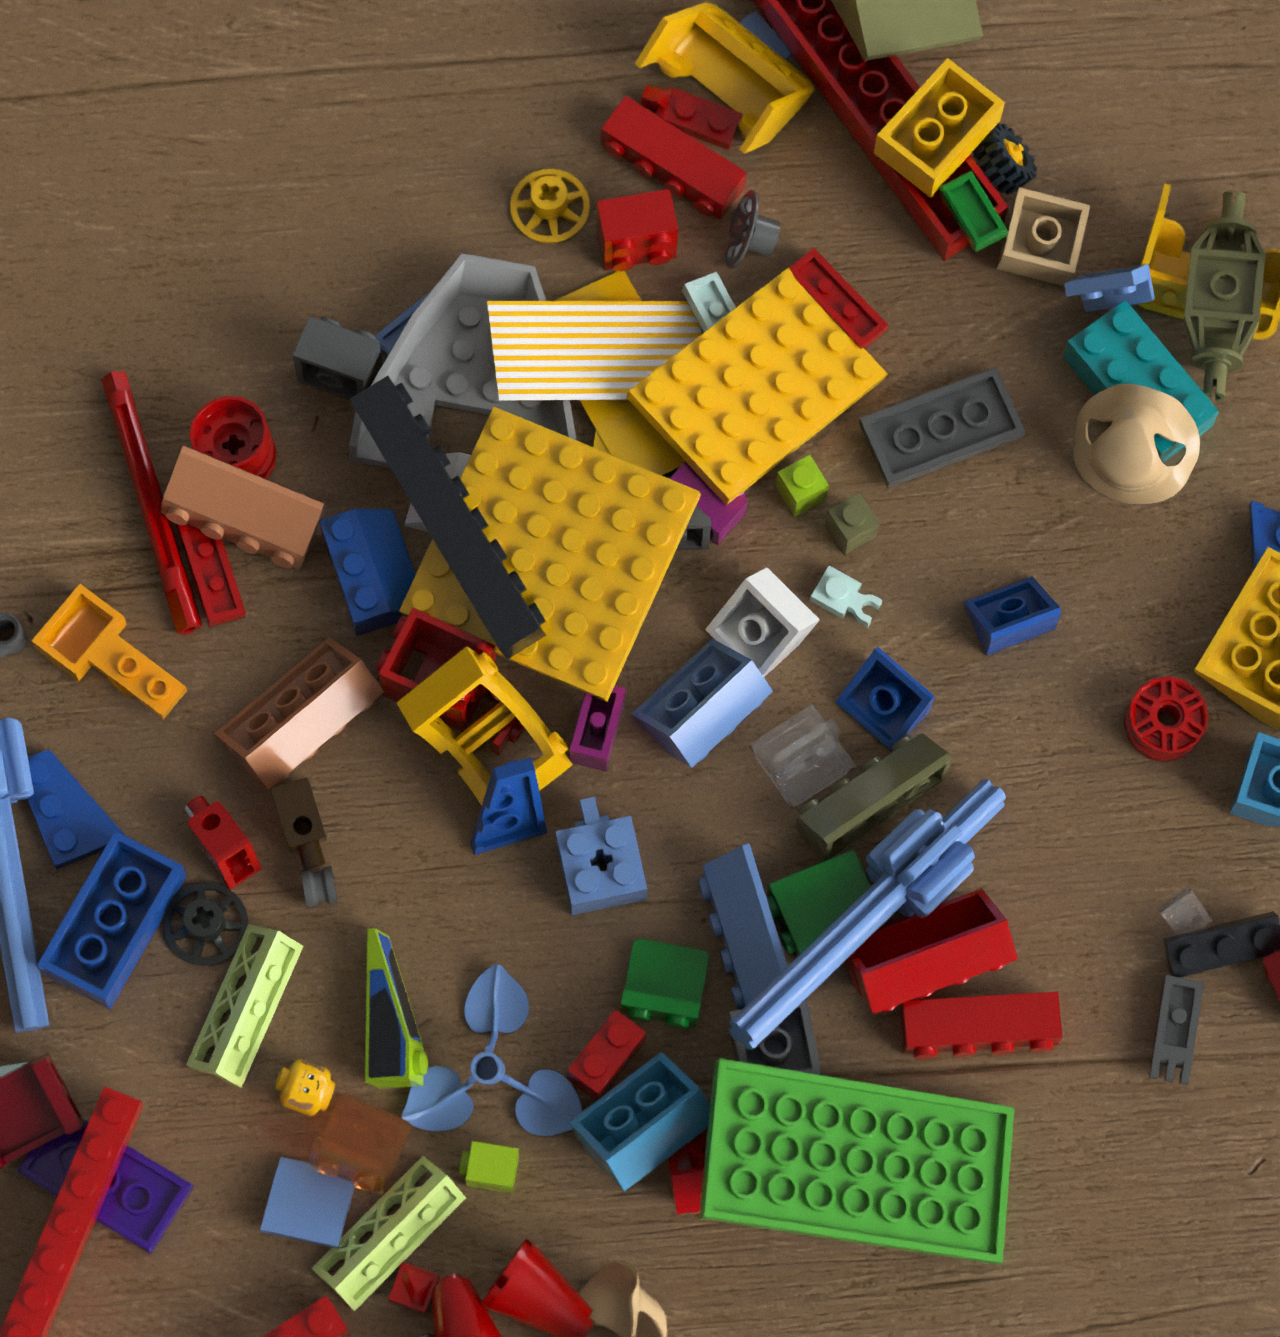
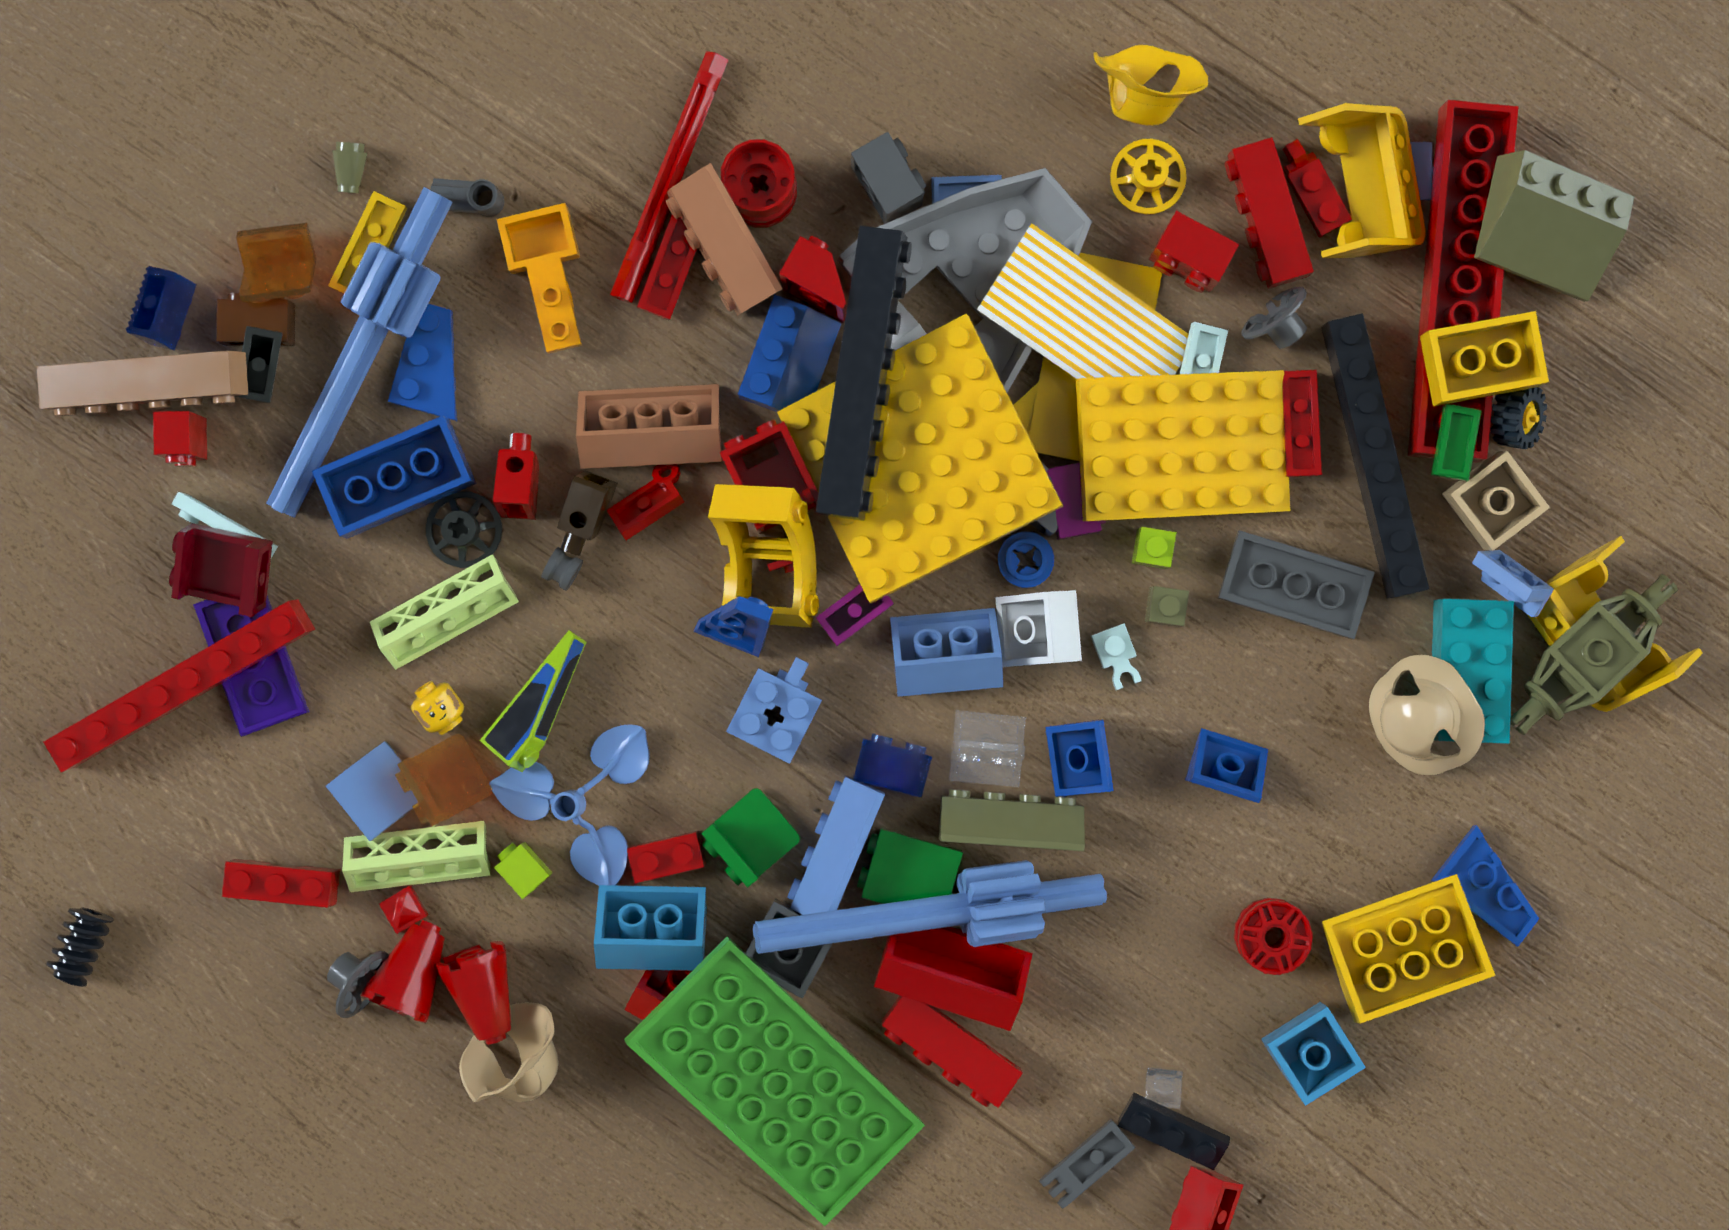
camera: 40 degrees right, 15 degrees up
(347, 476) = (813, 277): none -> red slope
(348, 776) = (647, 502): none -> red hinge
(494, 144) = (1135, 66): none -> yellow piece
(717, 567) = (1042, 557): none -> blue gear
(741, 823) = (893, 766): none -> clear blue brick
(919, 278) = (1374, 456): none -> black brick

